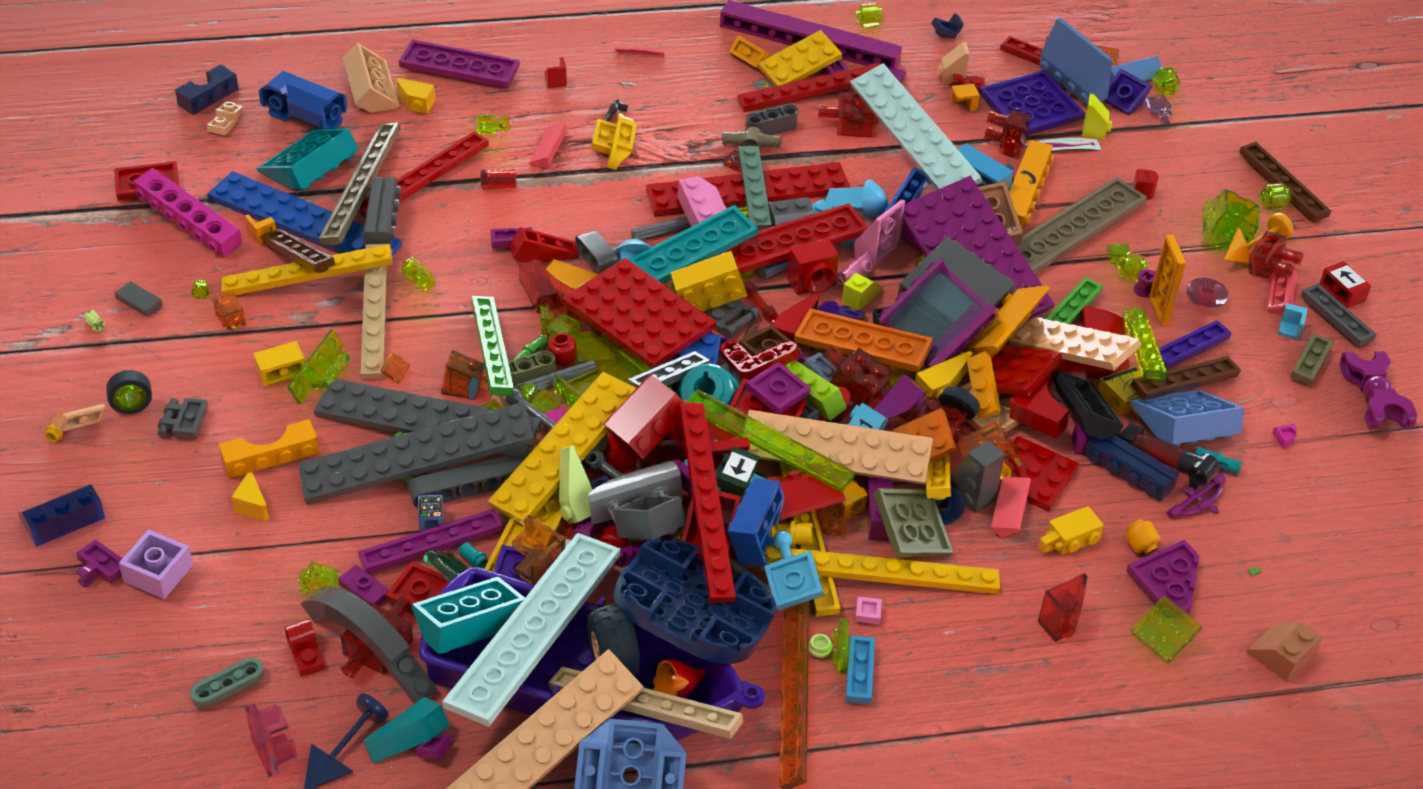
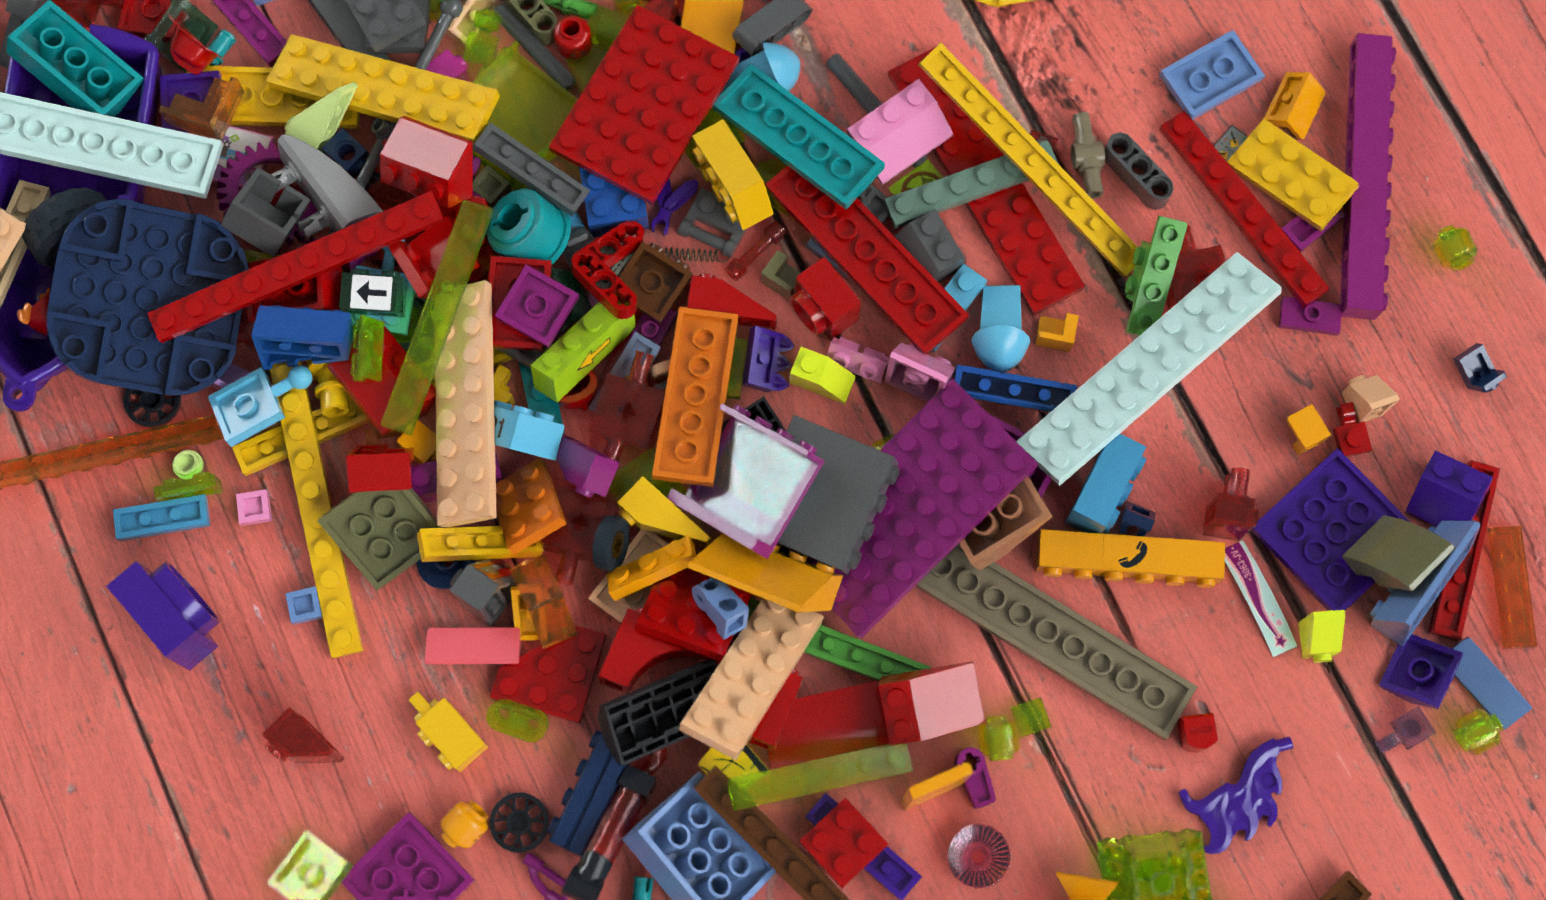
camera: 75 degrees right, 30 degrees up
(476, 551) = (189, 50): none -> red piece
(718, 78) = (1211, 75): none -> medium blue plate
(752, 148) = (1030, 158): none -> yellow plate
(759, 661) = (151, 403): none -> black wheel
(783, 294) = (780, 275): none -> panel
(790, 484) = (368, 340): none -> clear neon green hinge
(848, 126) = (1153, 273): none -> bright green bracket
(868, 172) = (1057, 333): none -> light orange panel
(872, 506) = (379, 468): none -> red panel
(950, 659) = (167, 611): none -> dark purple container
(955, 595) = (303, 605): none -> medium blue plate
(1020, 51) = (1448, 491): none -> dark purple slope
(1024, 344) = (721, 606): none -> medium blue leg
(1060, 66) = (1397, 553): none -> olive slope
(1071, 493) = (518, 722): none -> clear neon green plate
(1104, 286) = (930, 702): none -> slope
(1144, 511) = (519, 822): none -> black wheel
(1190, 182) = (1242, 804): none -> dark purple piece
(1190, 346) = (843, 843): none -> red plate

